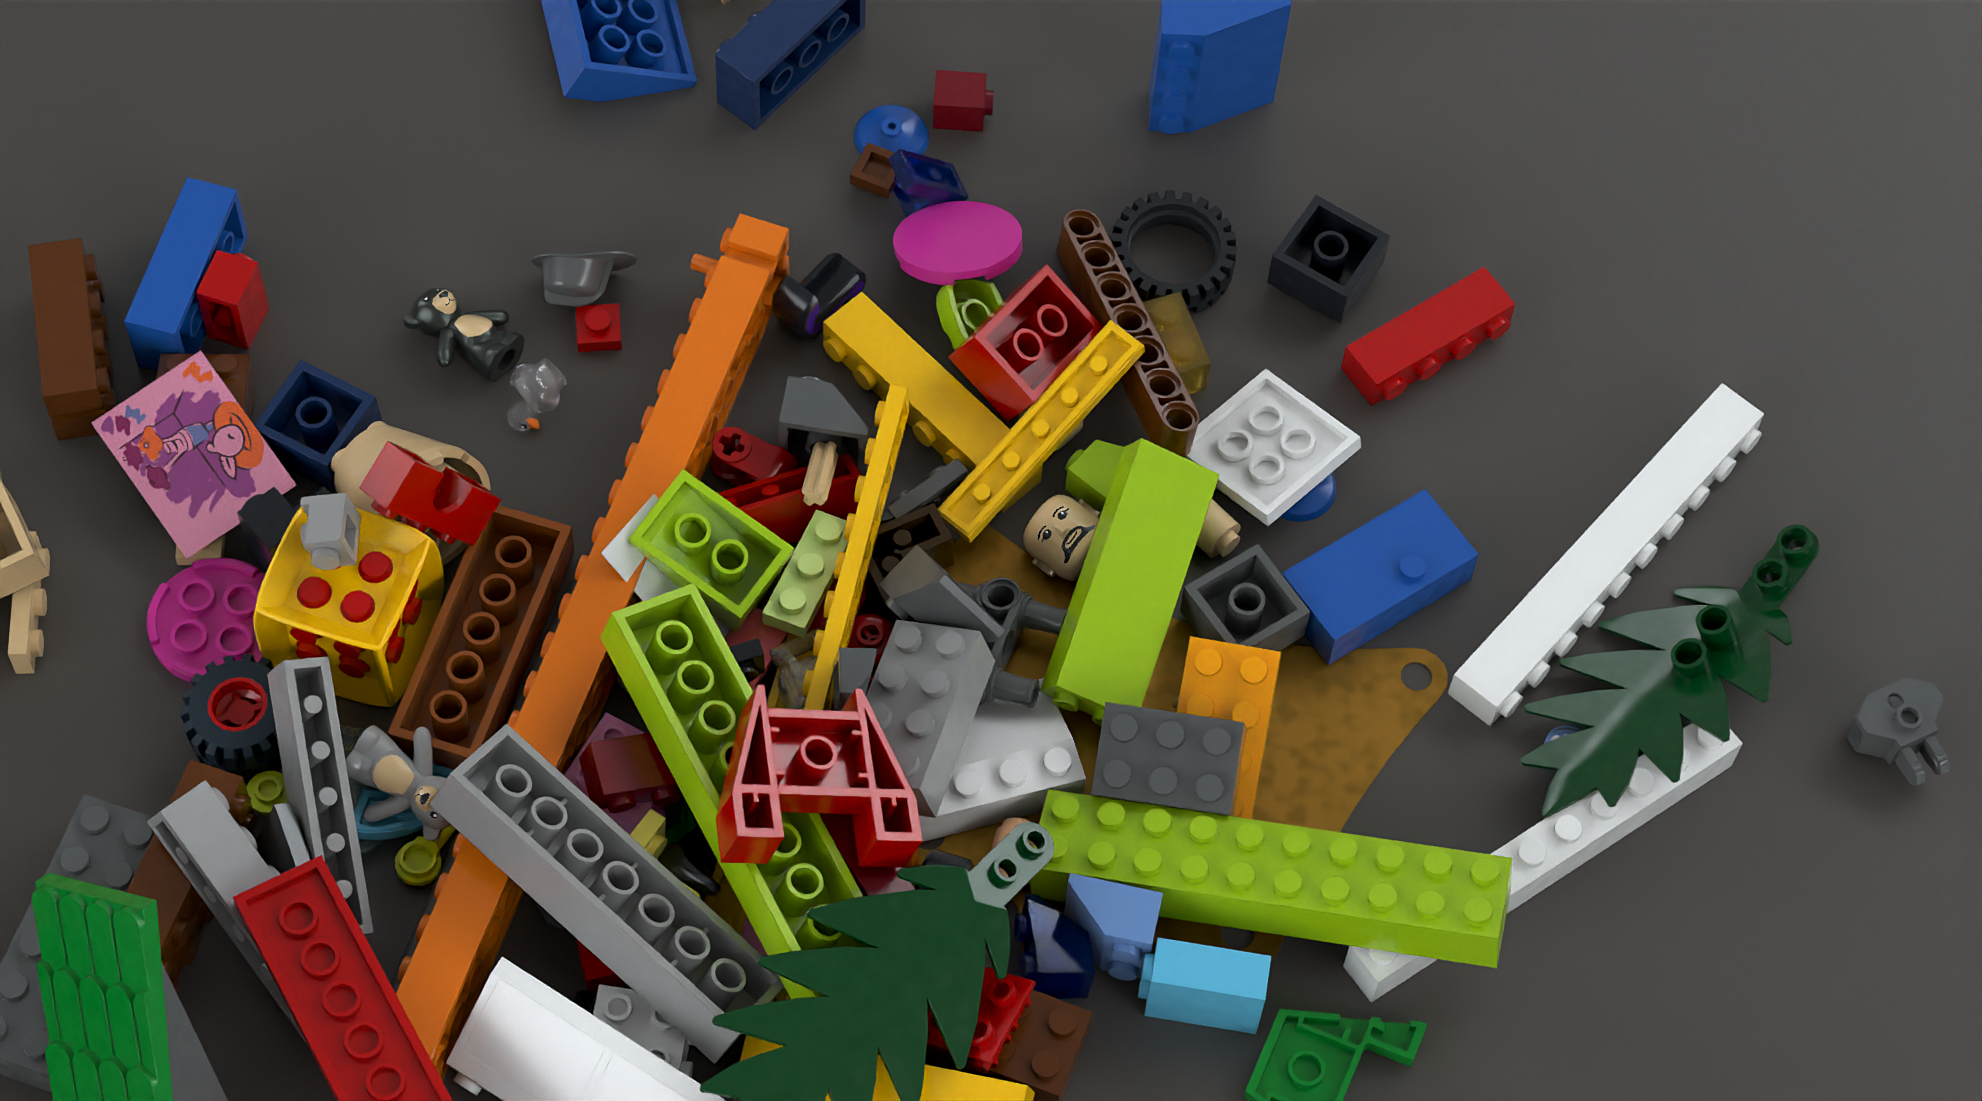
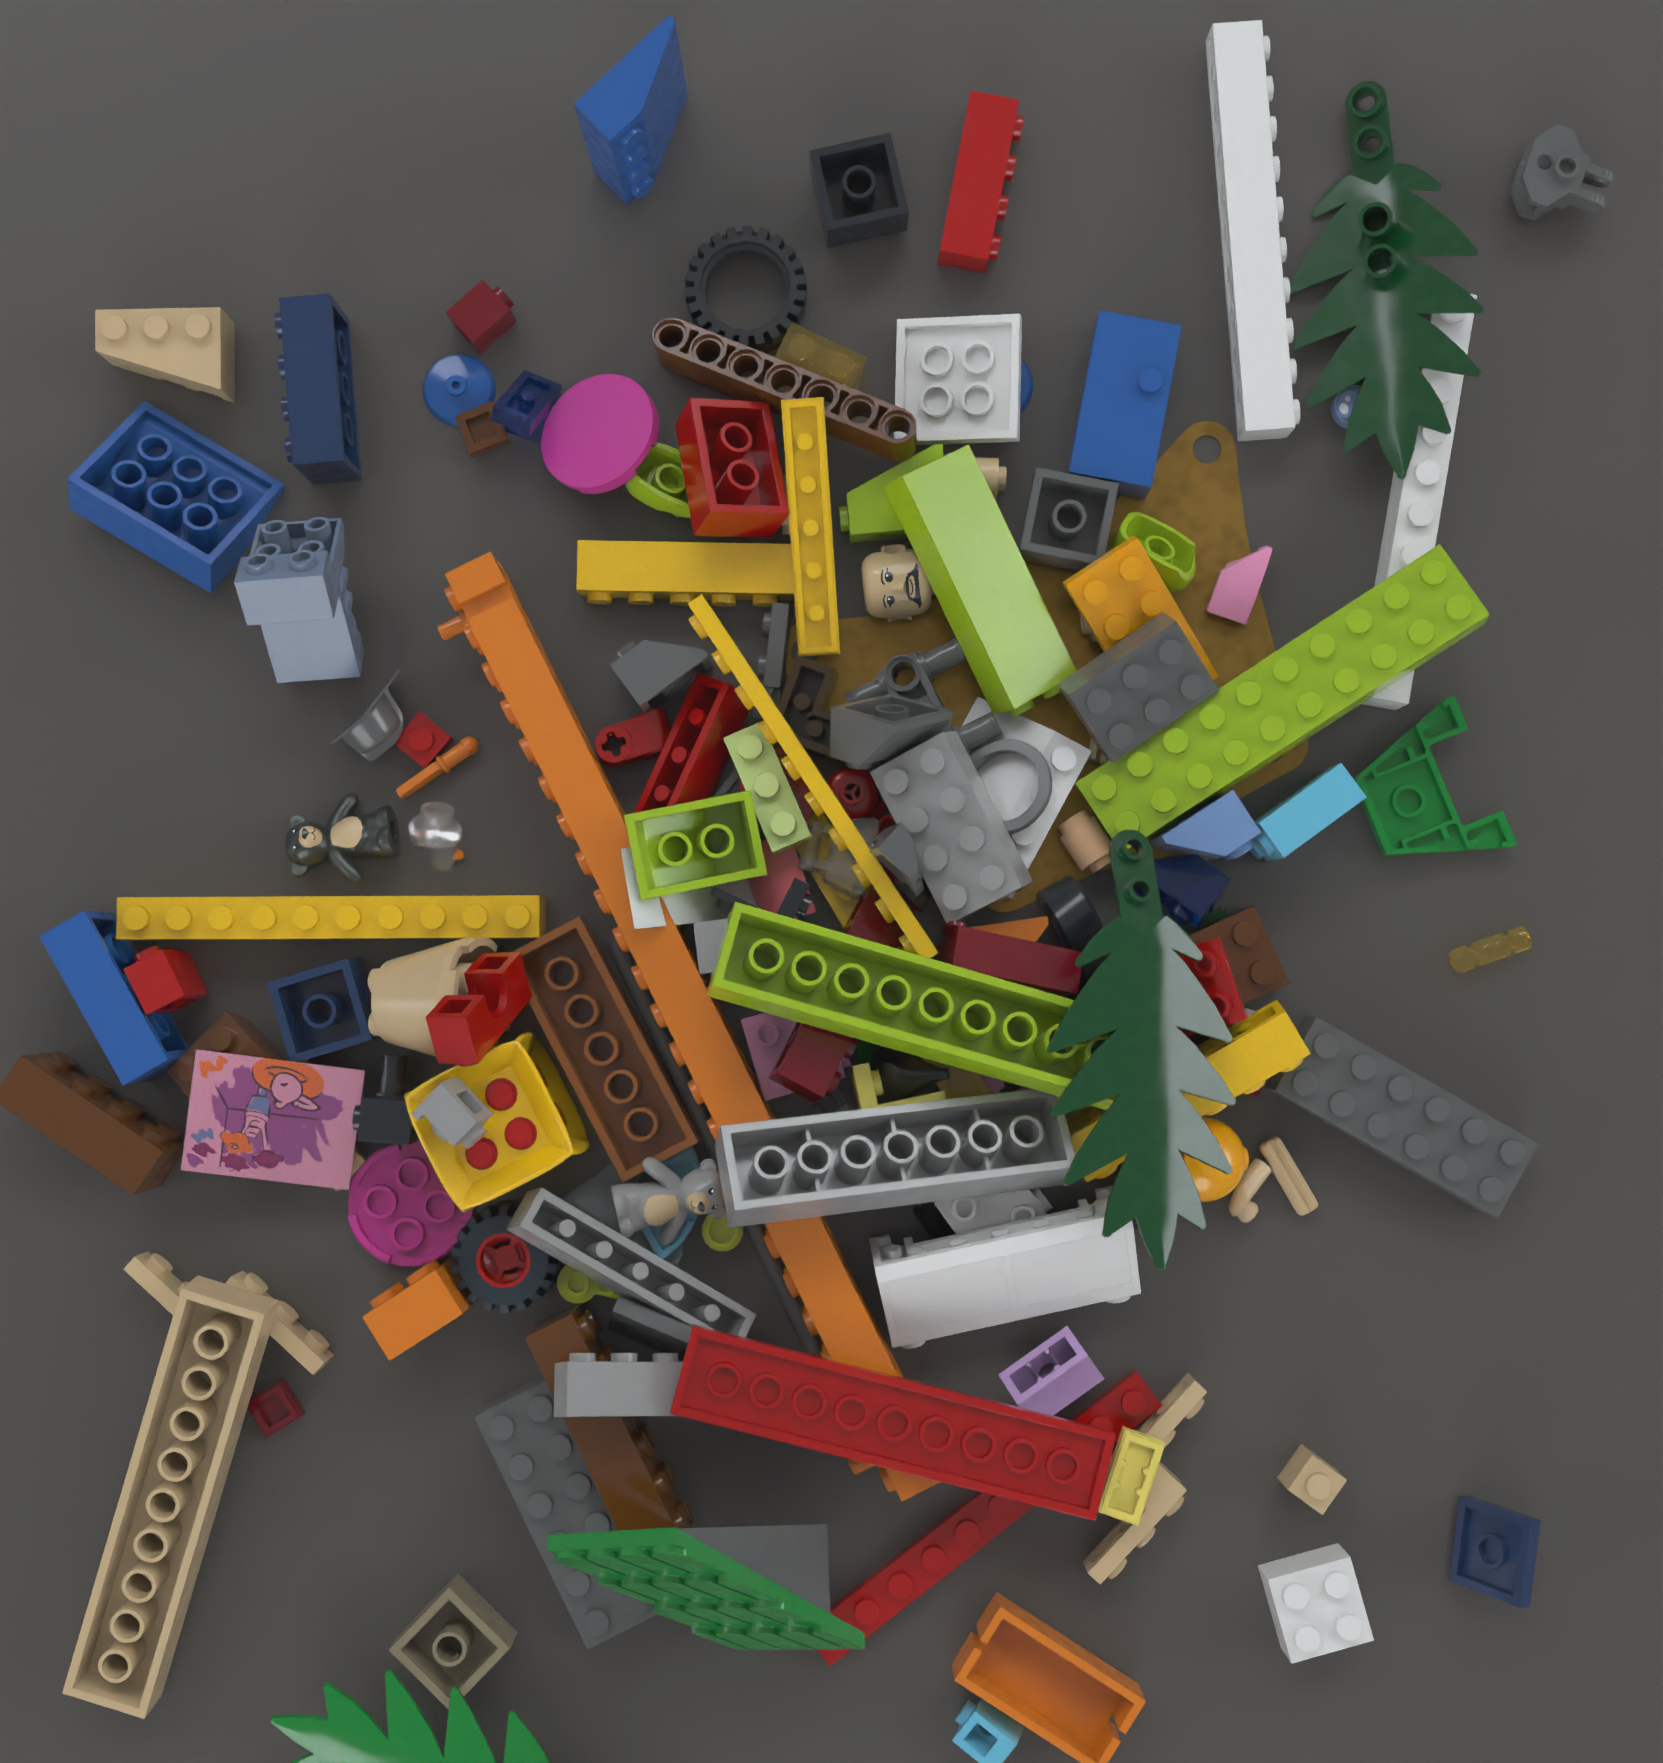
camera: 40 degrees left, 25 degrees up
(135, 682) = (414, 1312): none -> orange brick
(391, 367) = (331, 917): none -> yellow brick
(581, 352) = (445, 762): none -> orange piece
(619, 145) = (301, 600): none -> sand blue brick
(815, 766) = (953, 956): red wedge -> none
(818, 296) = (547, 569): black animal -> none
(820, 473) = (703, 712): tan axle -> none
(1013, 712) = (1043, 770): none -> dark grey piece
(1298, 703) = (1166, 547): none -> lime piece
(1335, 786) = (1239, 586): none -> bright pink slope

